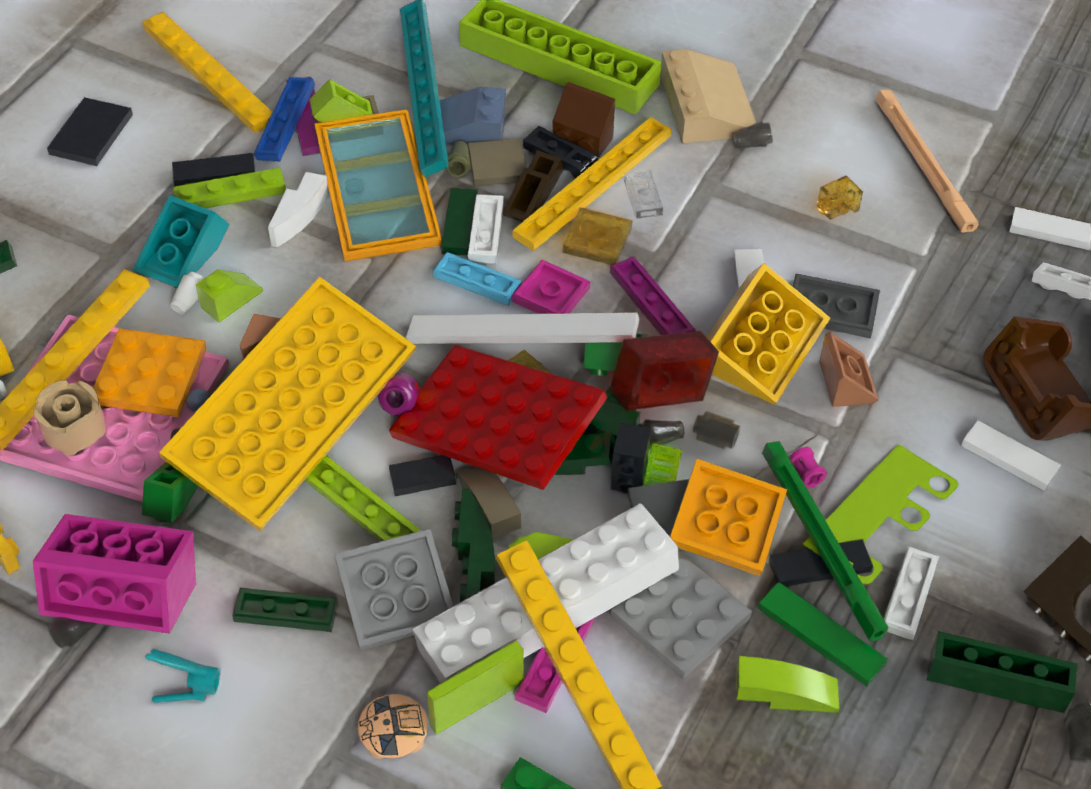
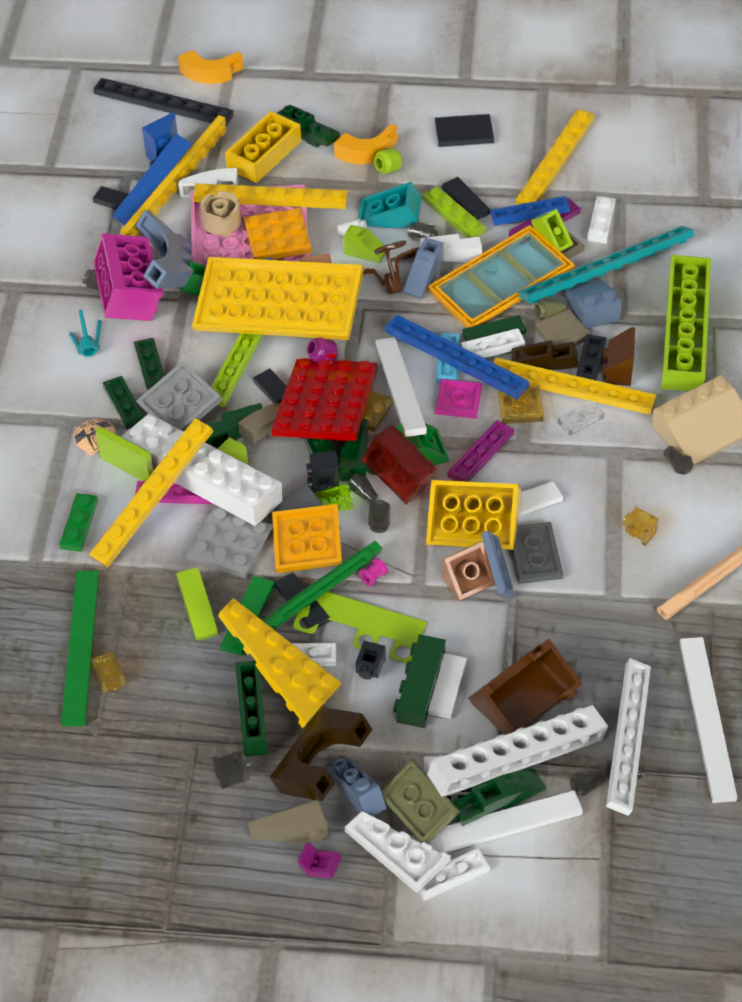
camera: 70 degrees right, 0 degrees up
(48, 237) = (364, 150): none -> light orange arch
(92, 216) = (388, 161): none -> lime head
(158, 504) = (172, 249): none -> sand blue arch
(248, 227) = (421, 230): none -> clear smoke brick
(309, 233) = (392, 279): none -> reddish brown plant
(315, 242) = (424, 267): none -> sand blue slope
(339, 68) = (601, 219): none -> white plate
(343, 667) = (123, 401): none -> dark green tile
(491, 263) = (457, 357): none -> blue plate
(856, 336) = (498, 565): none -> sand blue tile
(954, 516) = (370, 660): none -> black brick
(954, 603) = (282, 664): none -> yellow wing
(1002, 475) = (420, 681): none -> dark green brick

